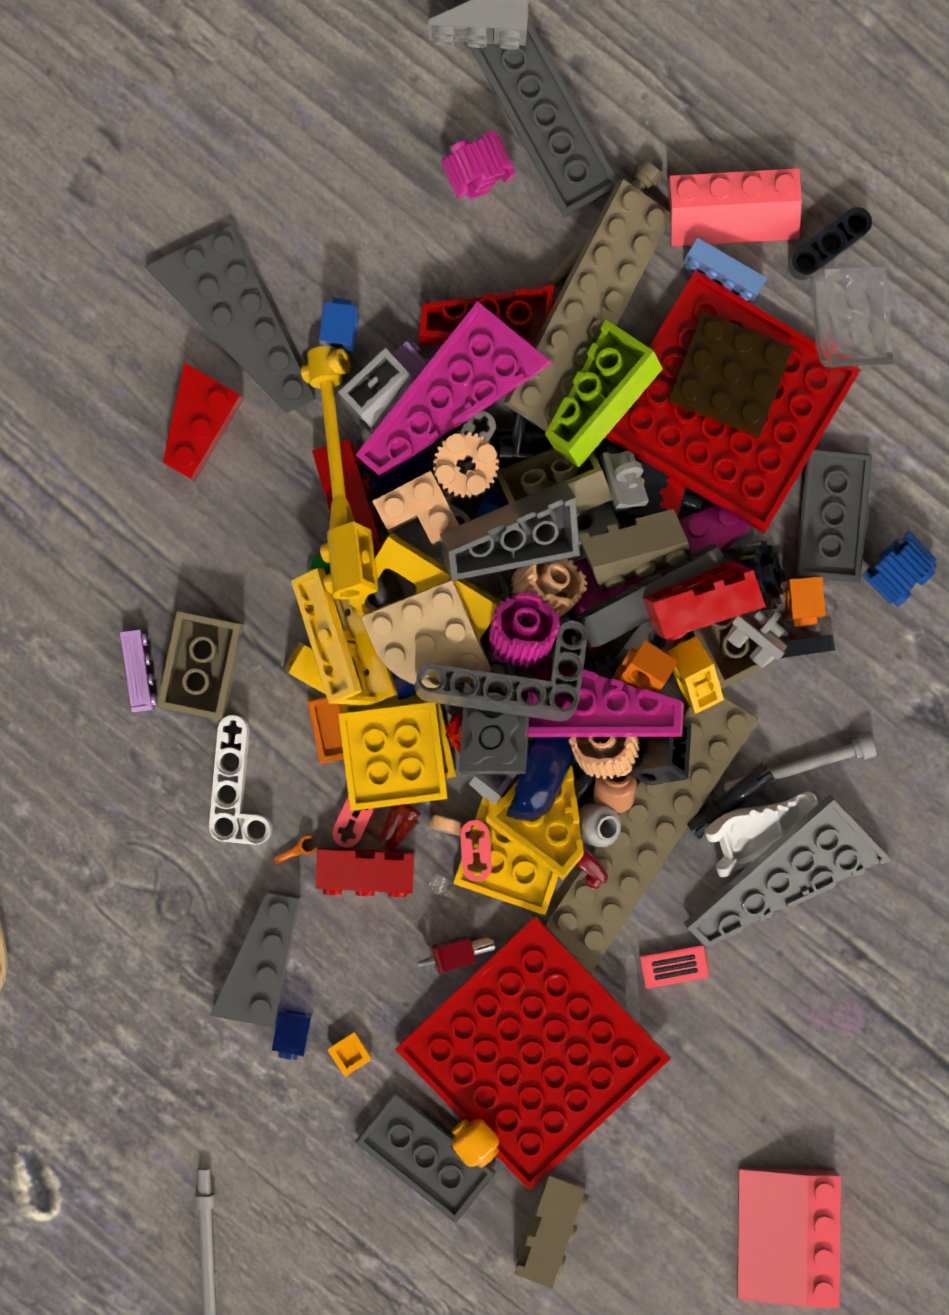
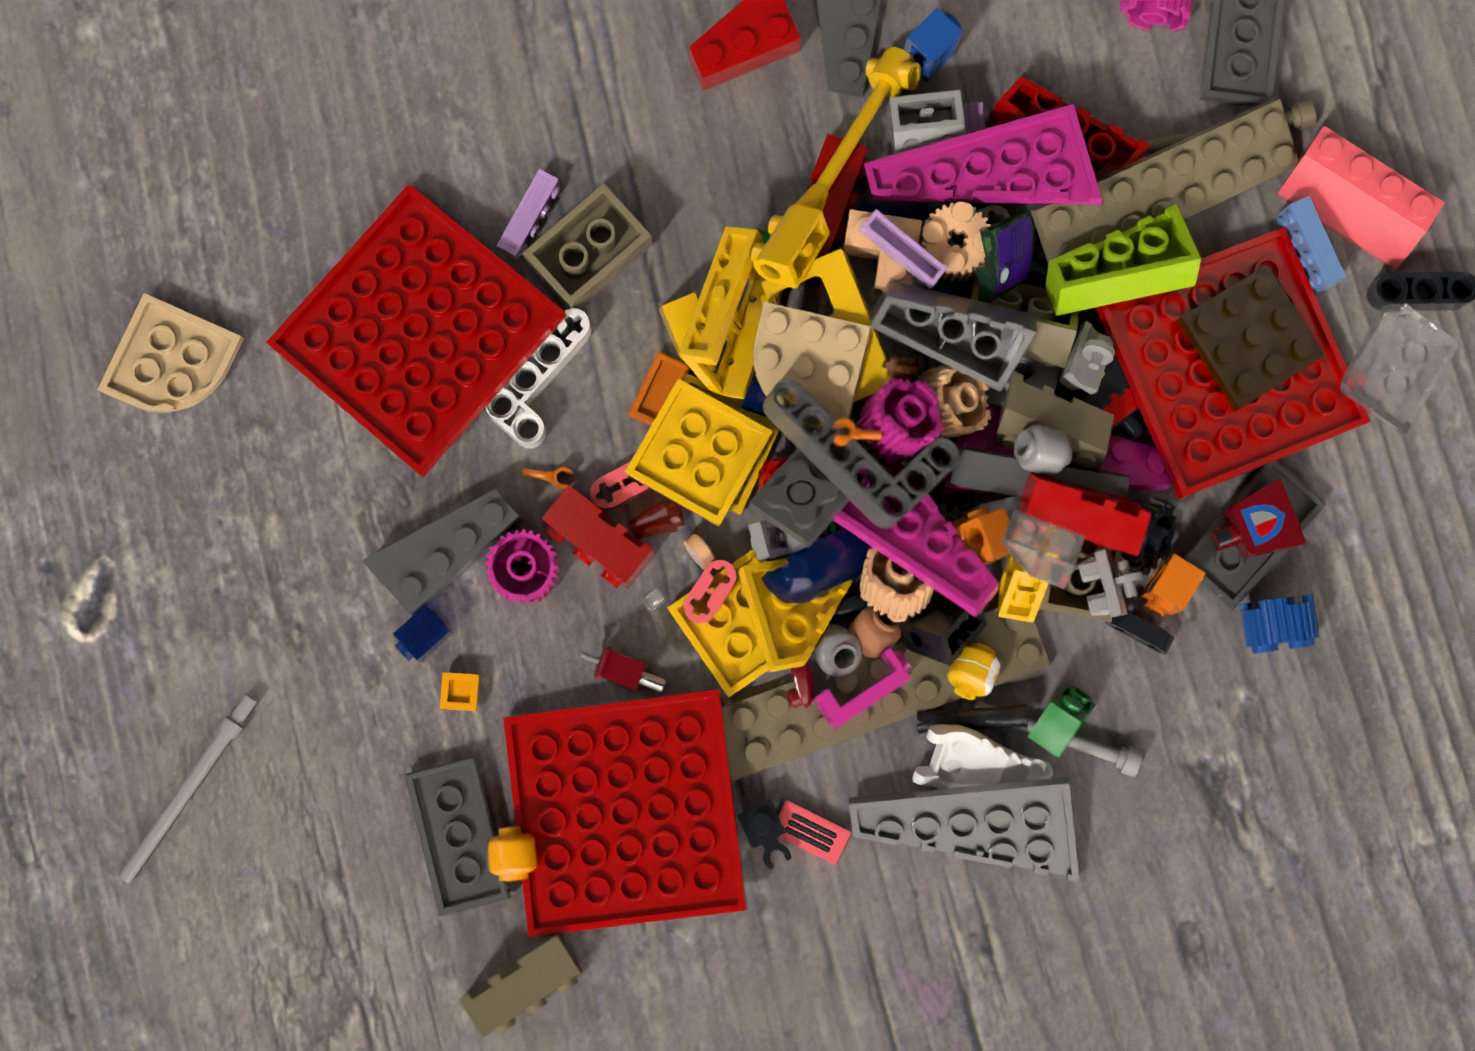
camera: 30 degrees right, 5 degrees down
(121, 818) = (416, 329): none -> red plate
(312, 923) = (513, 549): none -> dark pink brick
(433, 505) = (903, 249): none -> lavender piece
(496, 590) = (902, 367): none -> reddish brown axle
(499, 669) = (853, 433): none -> orange hand
(510, 449) = (1008, 255): none -> slope
(639, 989) = (761, 828): none -> black plate
(641, 577) = (1043, 450): none -> light grey head
(646, 845) = (837, 715): none -> dark pink window
(693, 650) = (1042, 548): none -> clear slope
(708, 767) = (974, 671): none -> yellow head
(795, 754) = (1062, 719): none -> slope
(835, 507) = (1260, 524): none -> dark red torso

